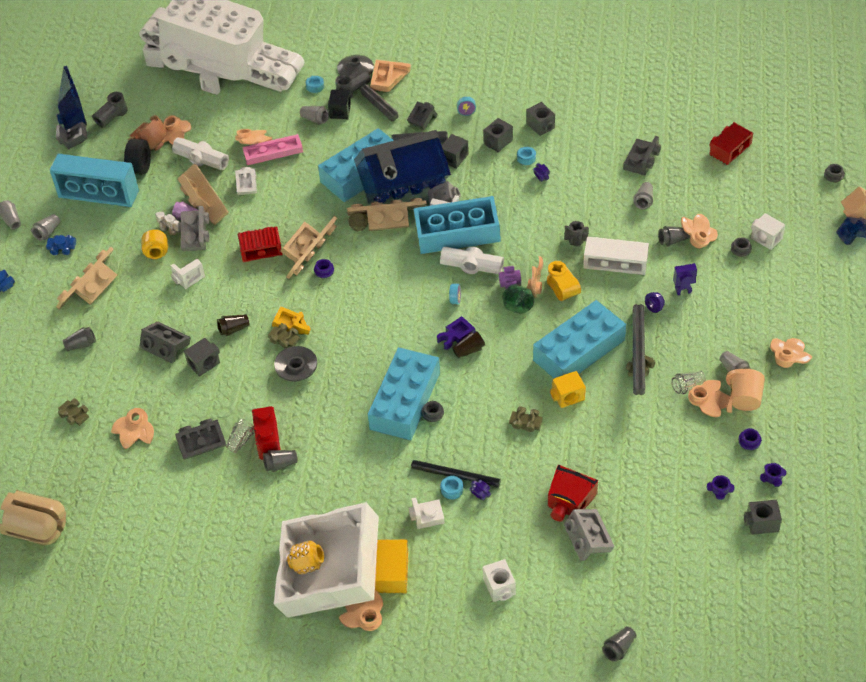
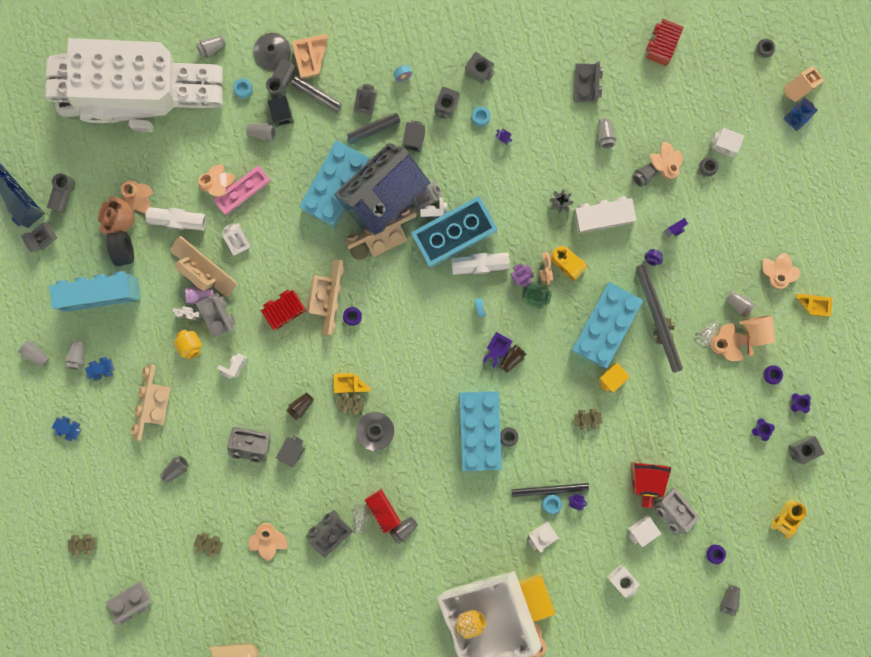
camera: 20 degrees left, 35 degrees up
(303, 47) = (210, 46): none -> light grey cone
(543, 539) = (643, 531): none -> white brick
(619, 585) = (721, 554): none -> dark purple plate
(718, 581) = (787, 519): none -> yellow piece
(820, 393) = (816, 304): none -> yellow slope

